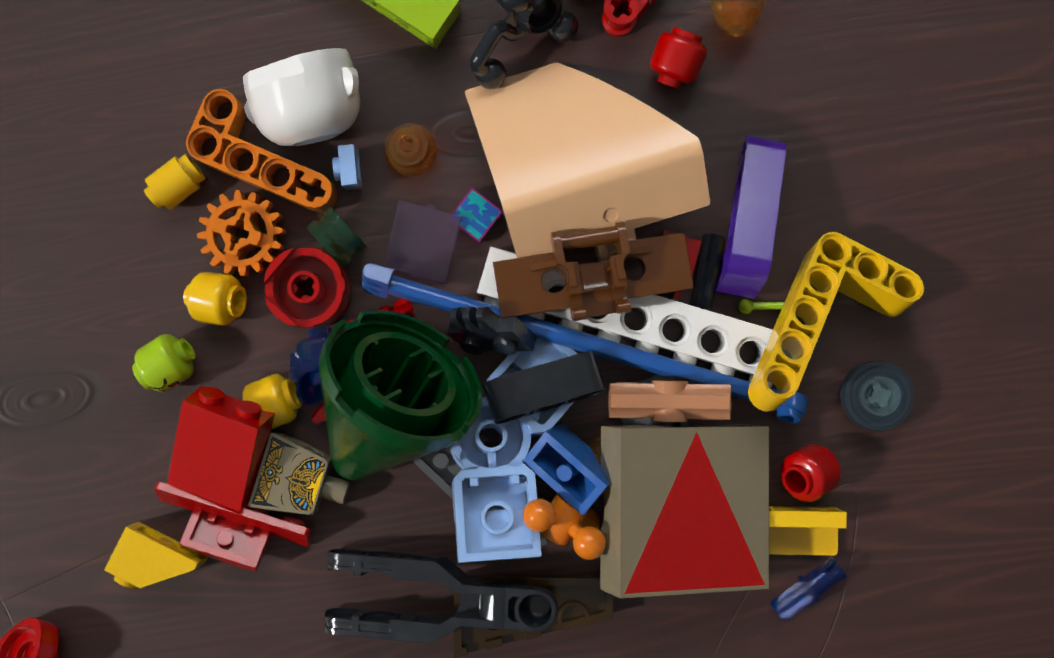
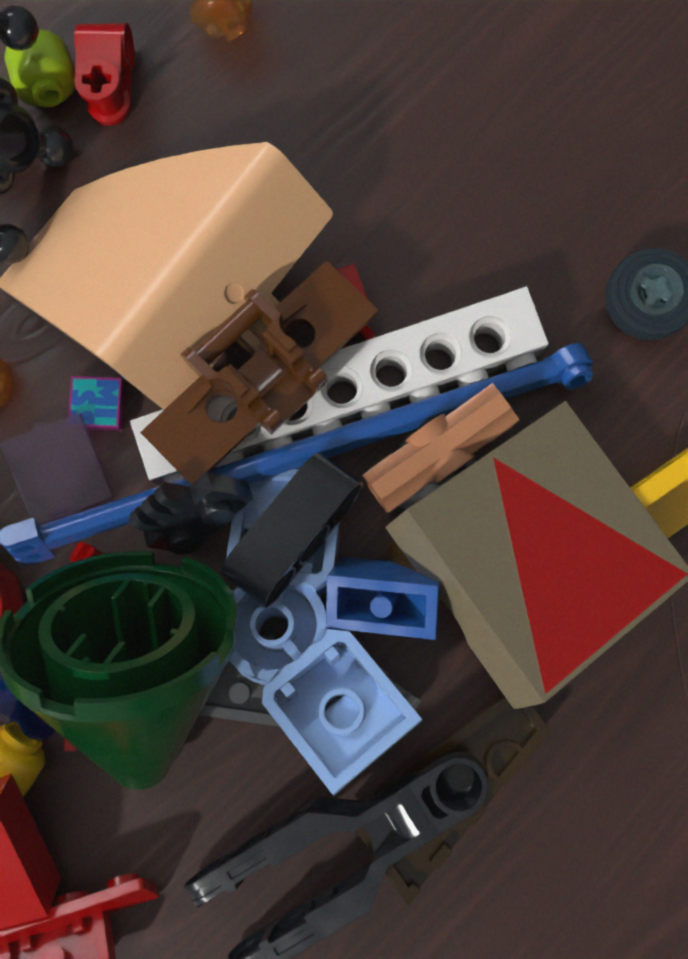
camera: 35 degrees left, 5 degrees down
(295, 477) = (88, 830): torso -> none
(562, 522) = (418, 665): orange piece -> none
(678, 57) = (195, 94): red head -> none
(707, 271) = (381, 288): black axle -> none
(746, 306) = (450, 299): lime hinge -> none
(753, 218) = (392, 202): beam -> none
(810, 472) = (644, 420): red head -> none
(841, 274) = (506, 198): yellow beam -> none

